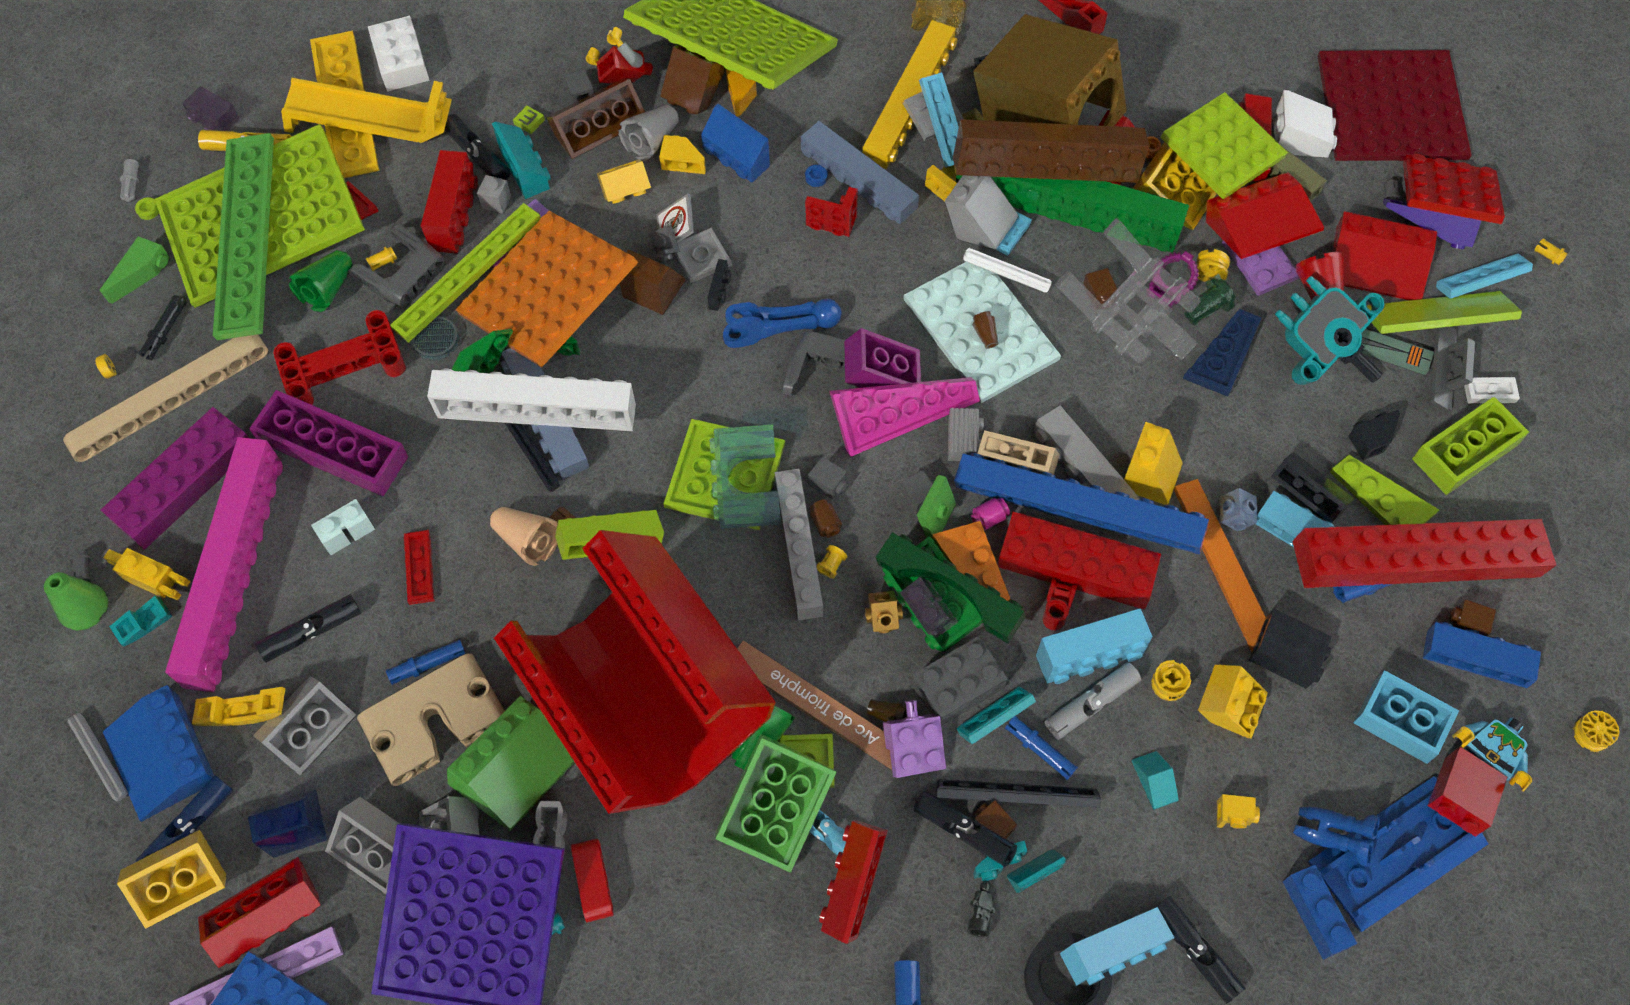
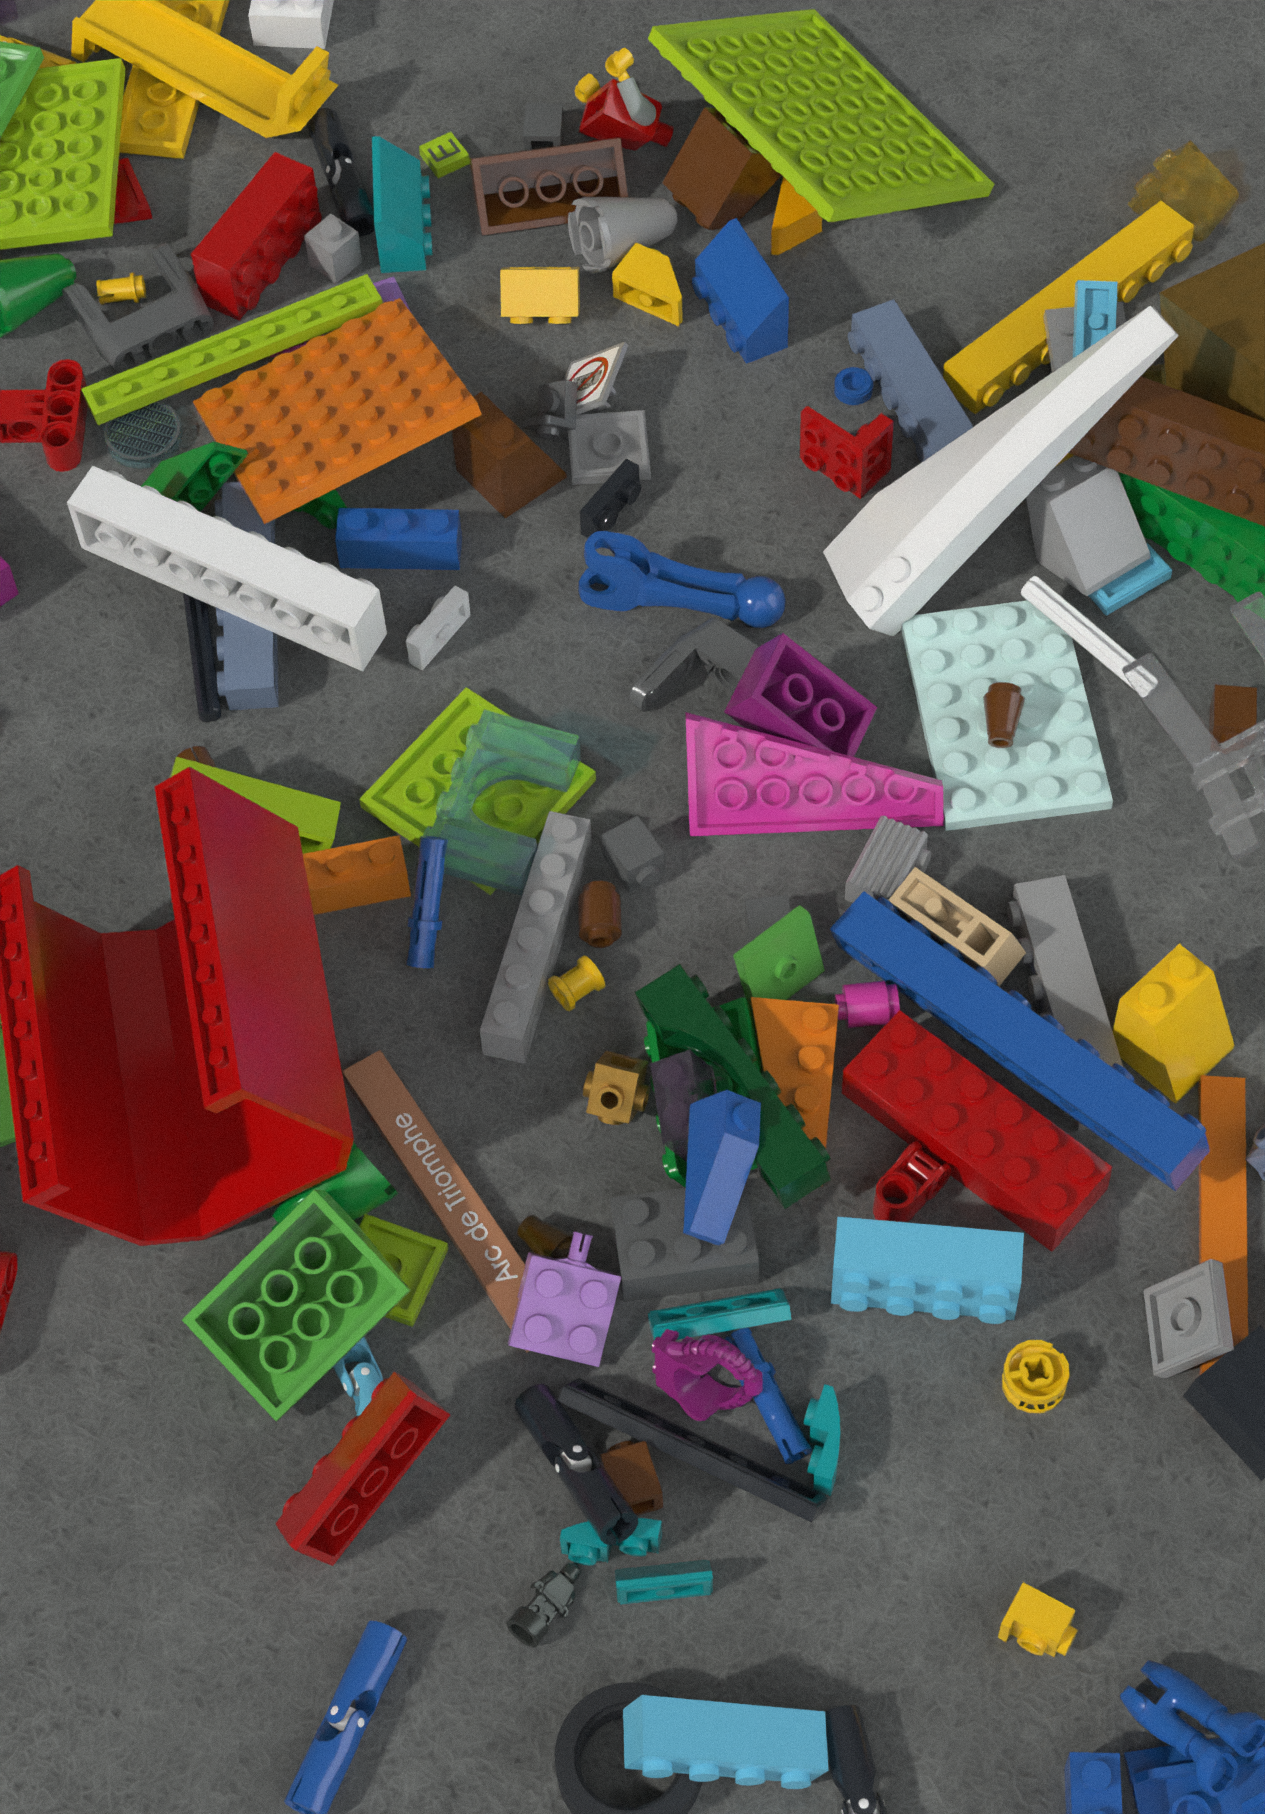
camera: 25 degrees right, 5 degrees down
(526, 533) = (127, 766): light nougat cone -> none
(613, 348) = (399, 538): none -> blue brick
(660, 383) = (435, 631): none -> white plate
(689, 543) = (356, 875): none -> orange brick
(735, 559) = (426, 907): none -> blue pin
(910, 225) = (949, 504): none -> white wedge
(967, 631) = (719, 1159): none -> blue slope
(999, 750) = (682, 1363): none -> magenta piece
(1081, 753) = (824, 1425): none -> teal slope
(1101, 694) = (917, 1350): light grey piece -> none
(1156, 779) = (931, 1522): teal slope -> none
(1233, 700) = (1123, 1448): yellow slope -> none
(1235, 619) = (1188, 1319): none -> light grey tile

